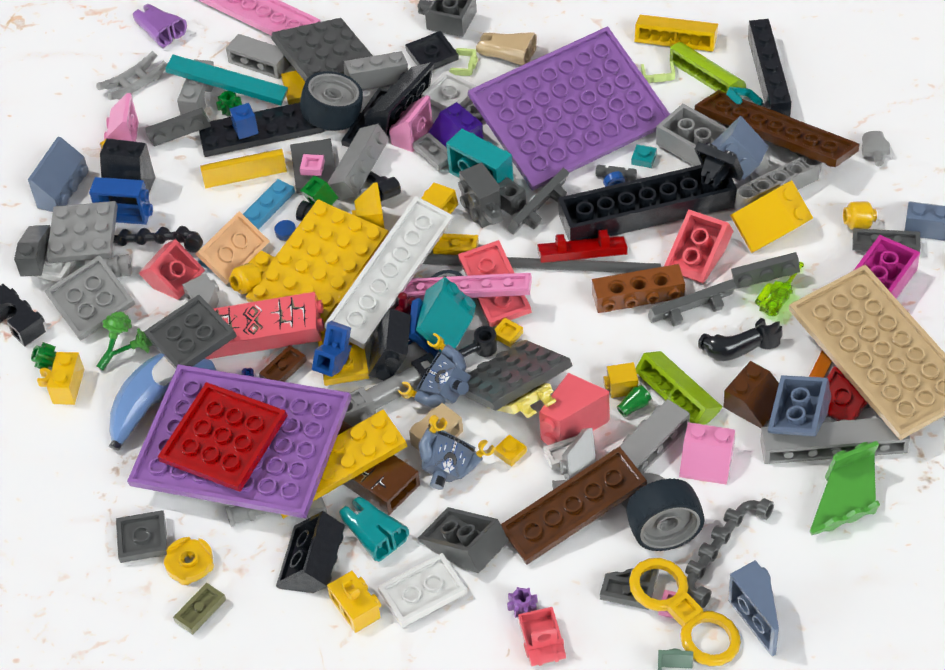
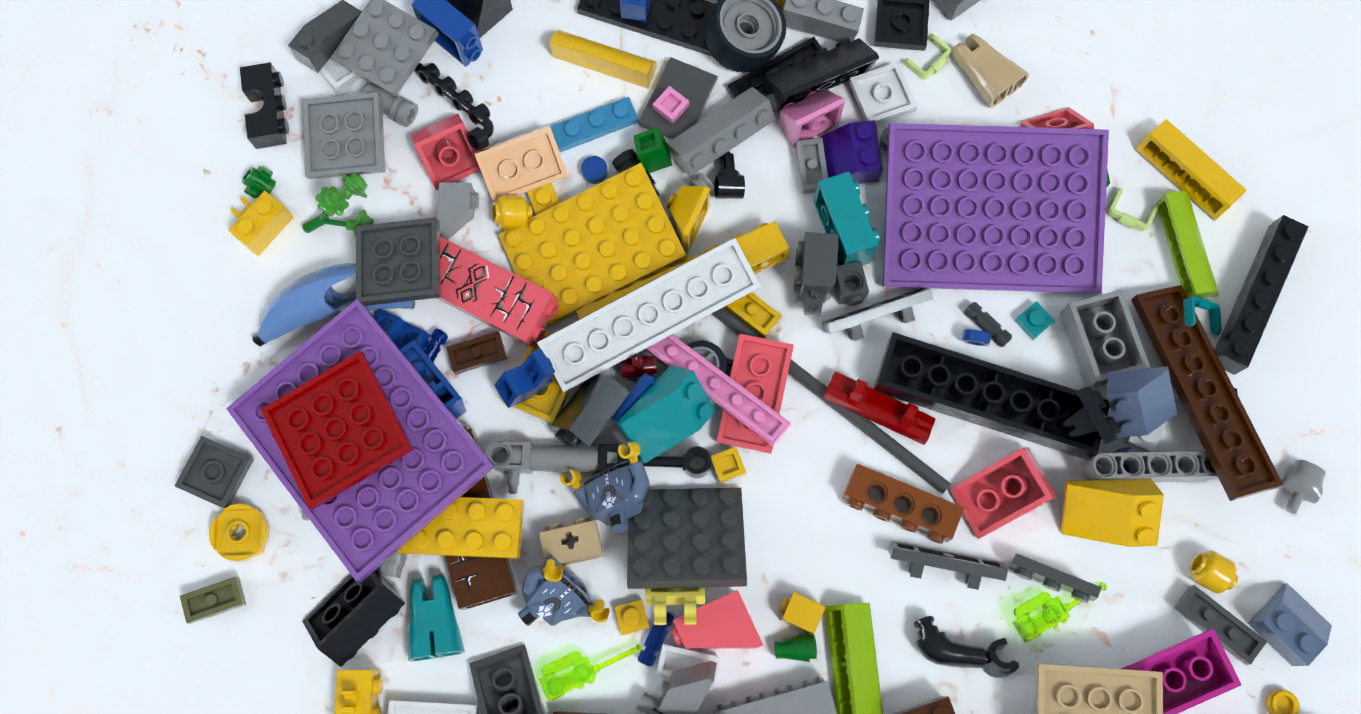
camera: 30 degrees right, 25 degrees up
(499, 496) = (583, 672): none -> clear neon green piece
(535, 450) = (655, 641): none -> clear blue axle

